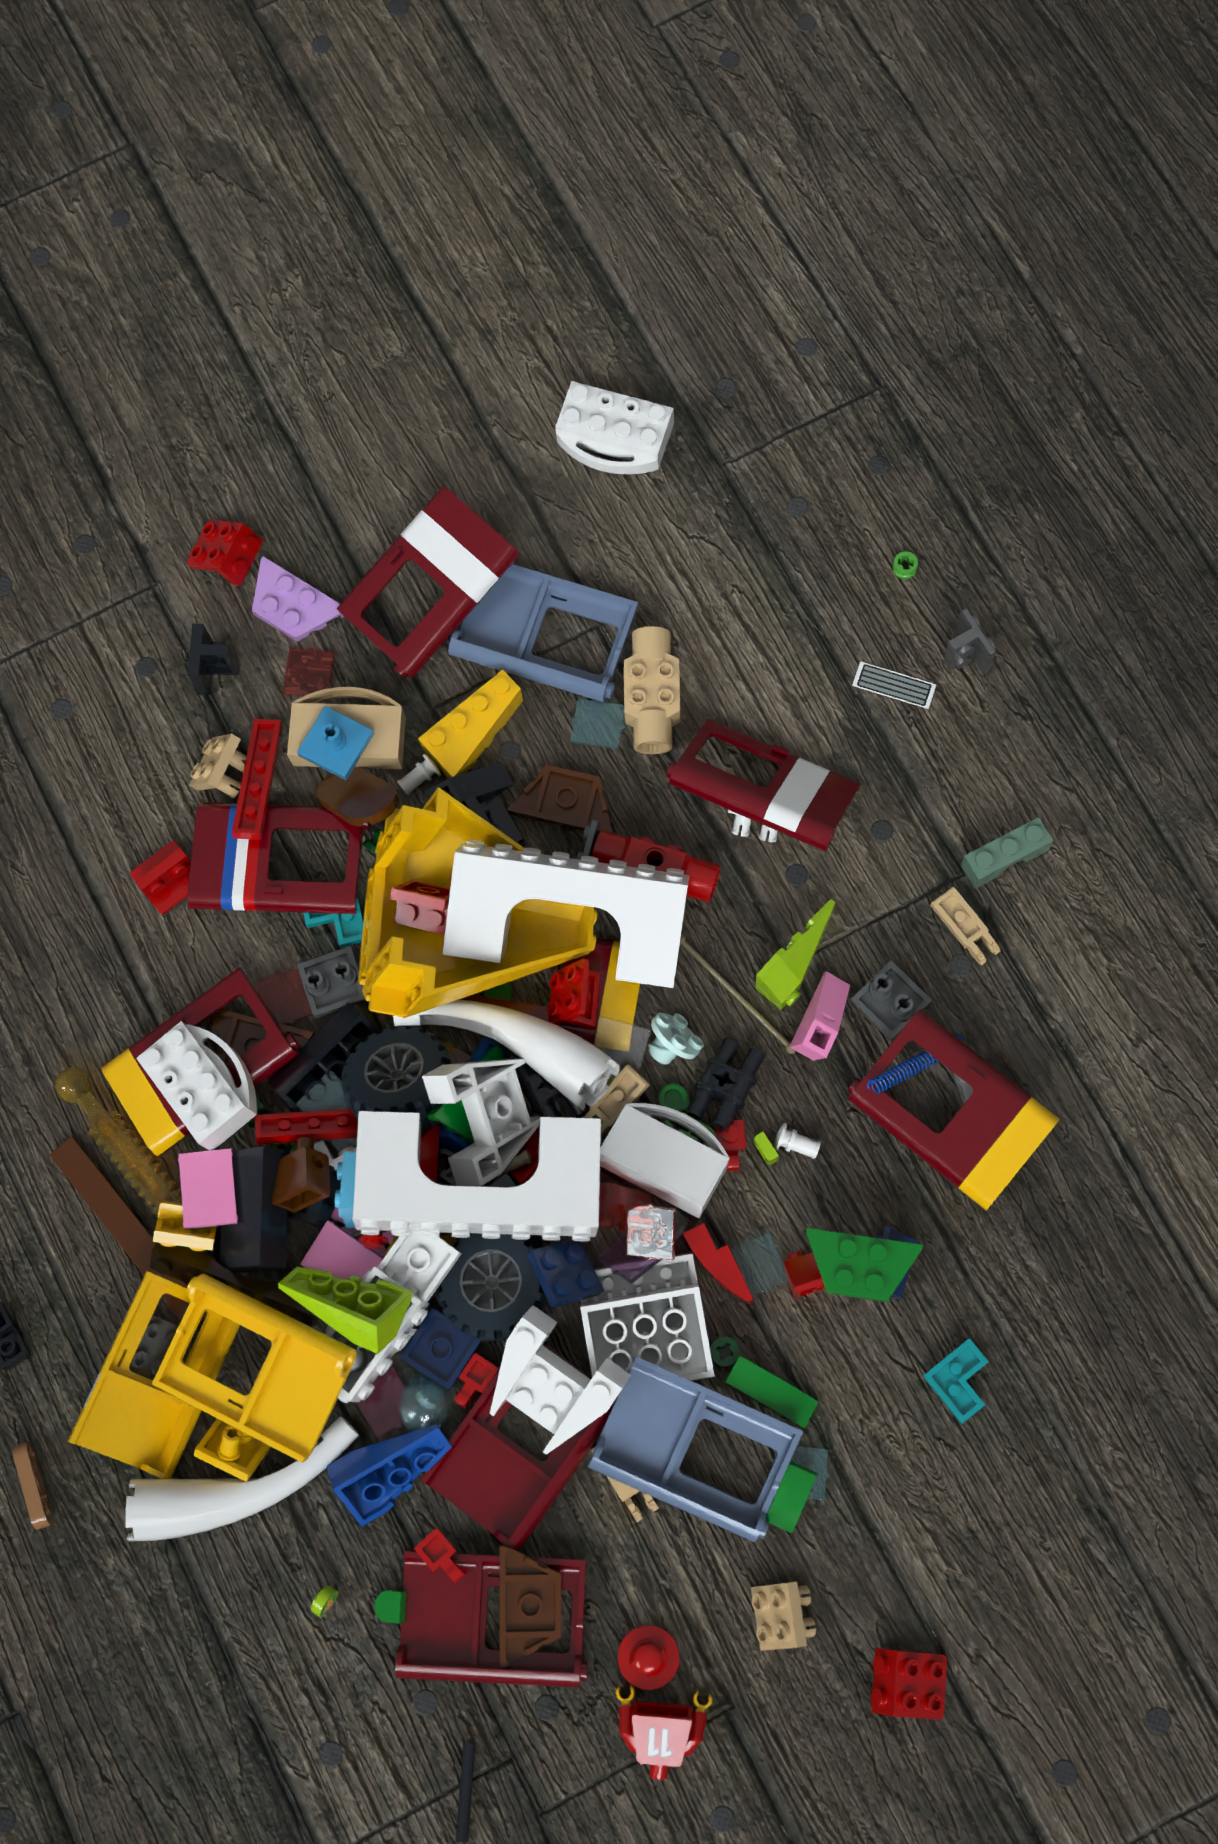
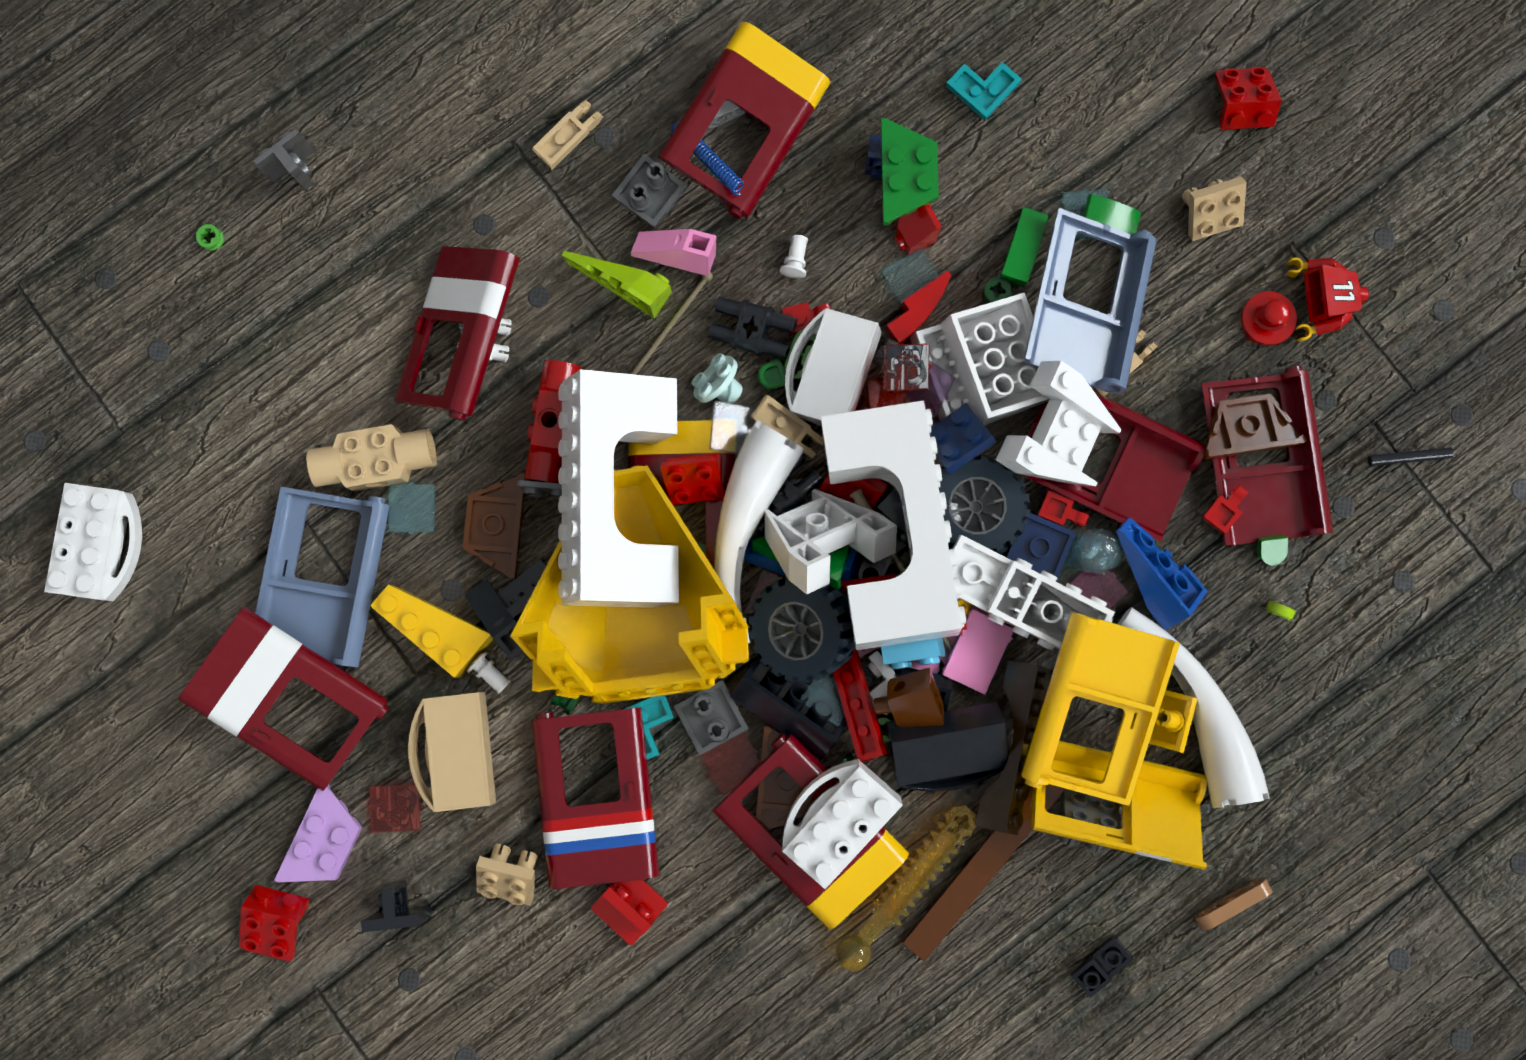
camera: 105 degrees left, 10 degrees up
(171, 1232) = (977, 805): yellow bracket -> none
(207, 1188) = (938, 791): bright pink piece -> none
(257, 779) = (517, 832): red plate -> none
(335, 743) = (471, 757): dark azure tile -> none
(356, 1309) = (1032, 620): lime wedge -> none
(359, 798) = (523, 725): reddish brown tile -> none
(421, 905) = (625, 636): bracket -> none
(765, 1148) = (806, 283): lime tile -> none
(894, 685) = (335, 232): sticker -> none
(1018, 845) = (492, 103): sand green arch -> none

